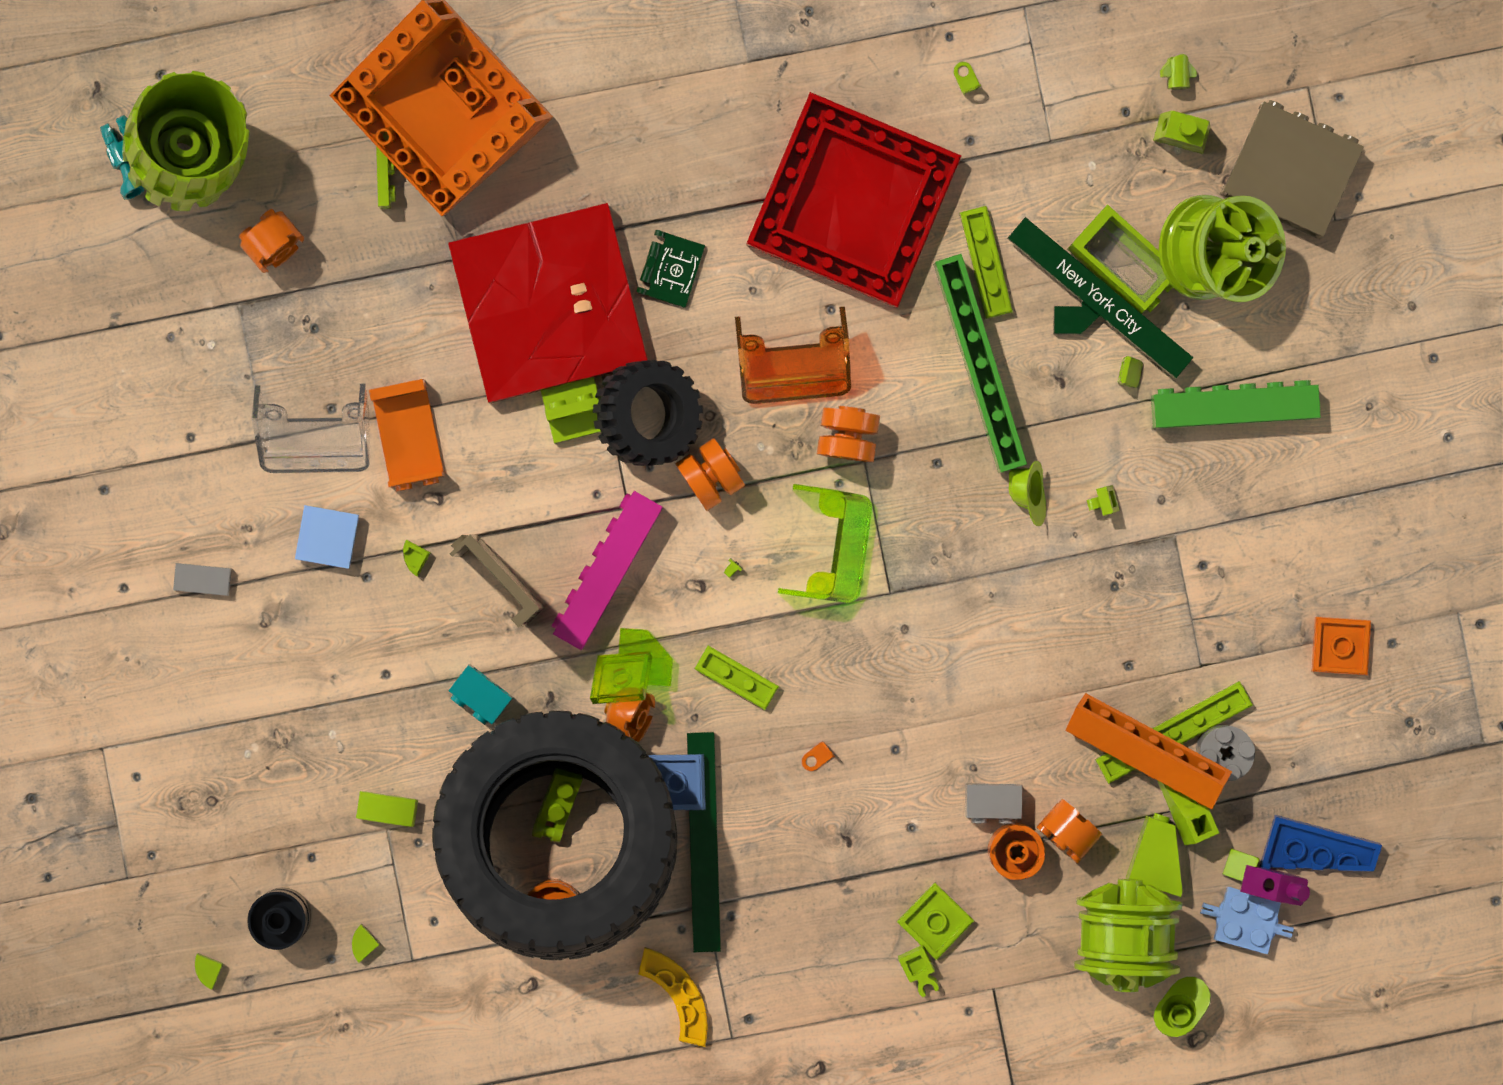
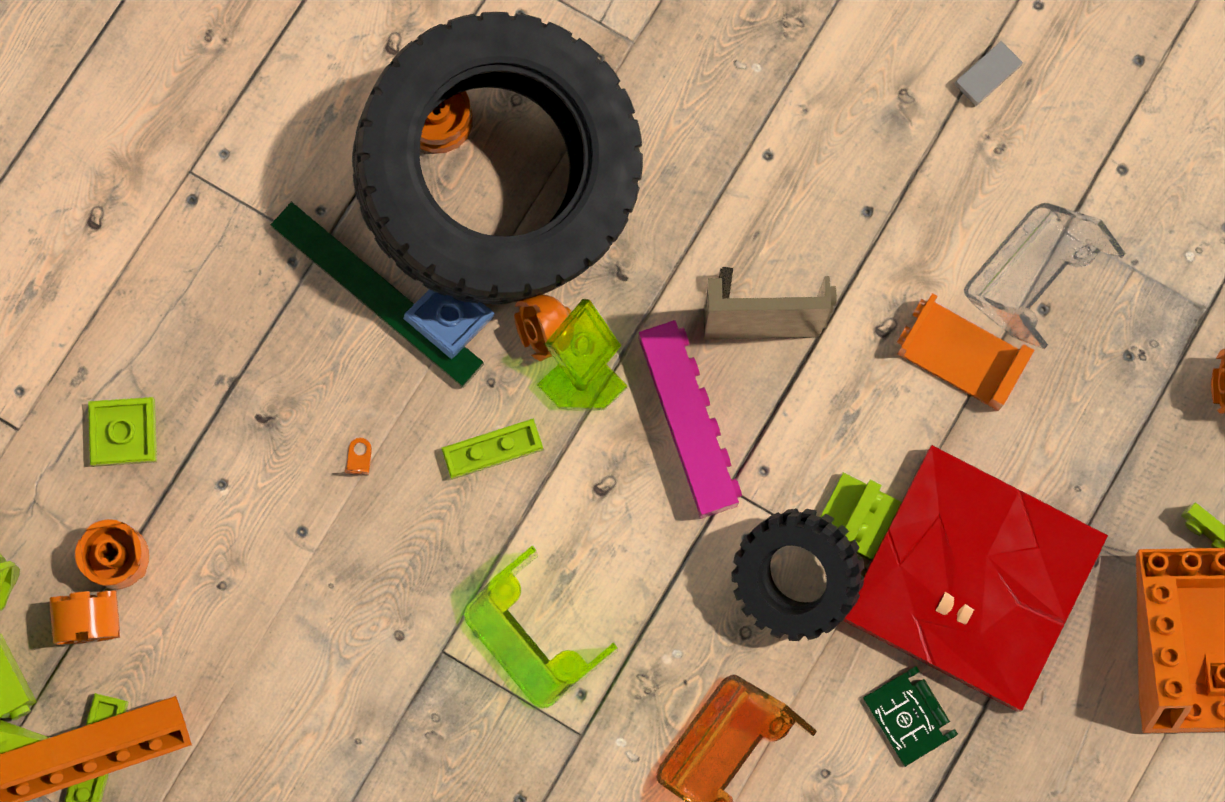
camera: 130 degrees right, 10 degrees down
(327, 536) = (933, 206): light blue tile -> none
(387, 808) = (650, 55): lime slope -> none
(415, 557) = (848, 266): lime tile -> none
(480, 695) = (678, 215): teal brick -> none
(500, 624) = (726, 275): none -> clear smoke tile
(557, 804) = (523, 195): lime plate -> none
(682, 991) = (268, 165): yellow tile -> none
(718, 467) = (694, 572): orange wheel -> none
(732, 568) = (591, 531): lime piece -> none
(848, 442) = (623, 749): orange wheel -> none
(918, 967) = (96, 381): lime plate -> none
(993, 801) = (174, 574): light grey brick -> none

